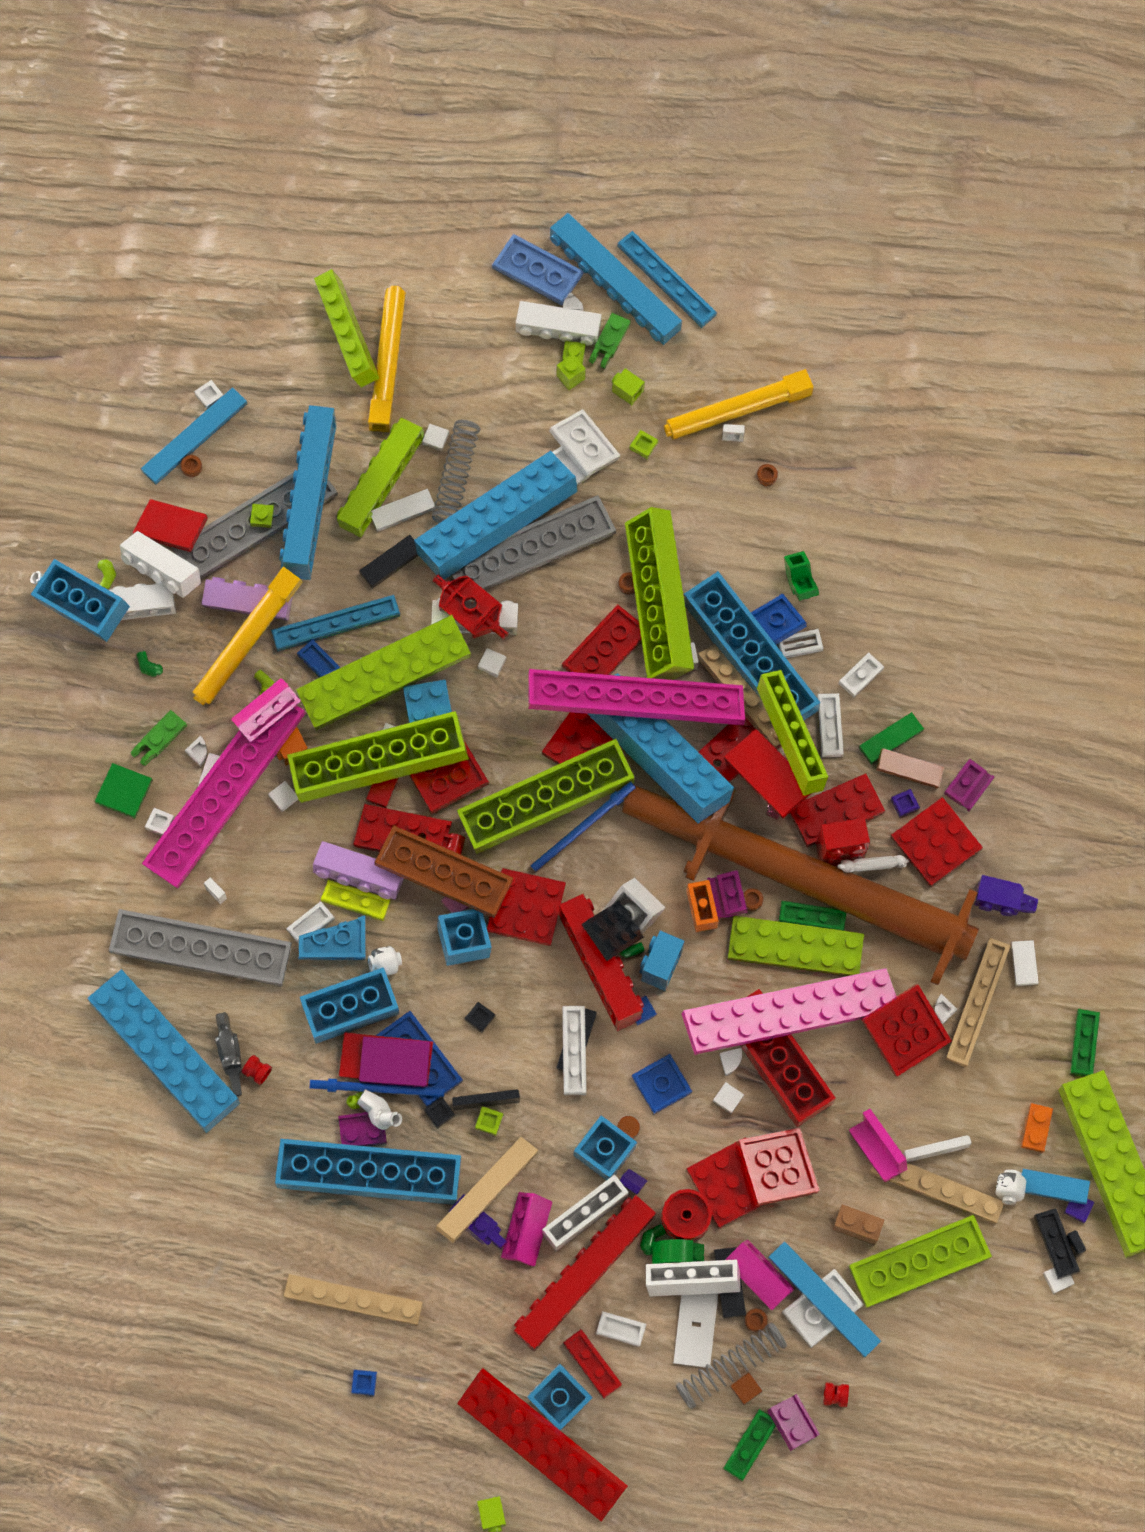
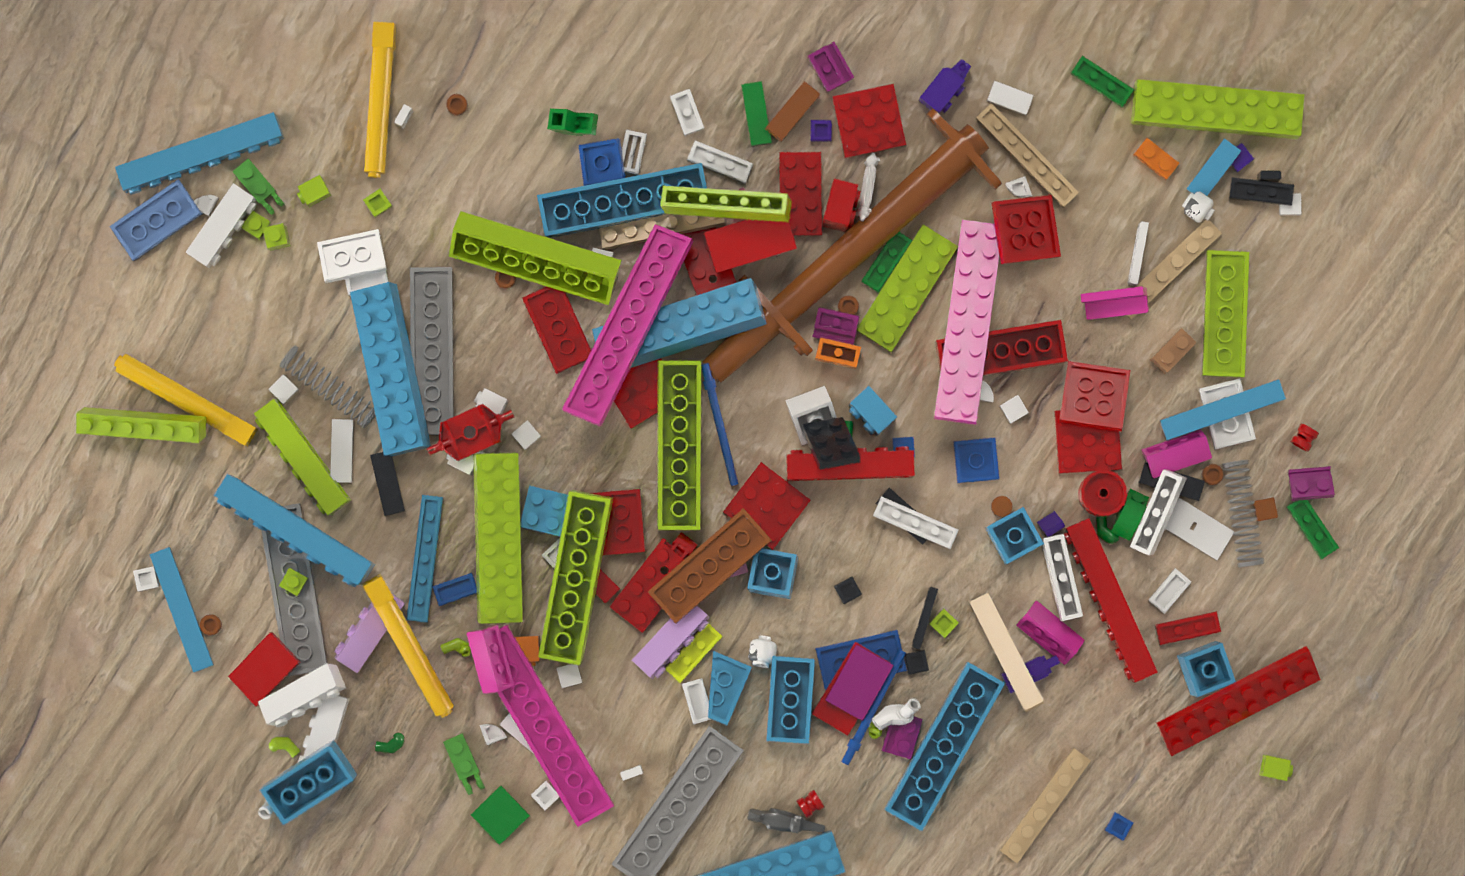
camera: 65 degrees left, 15 degrees up
(667, 279) = (219, 104): dark azure tile -> none

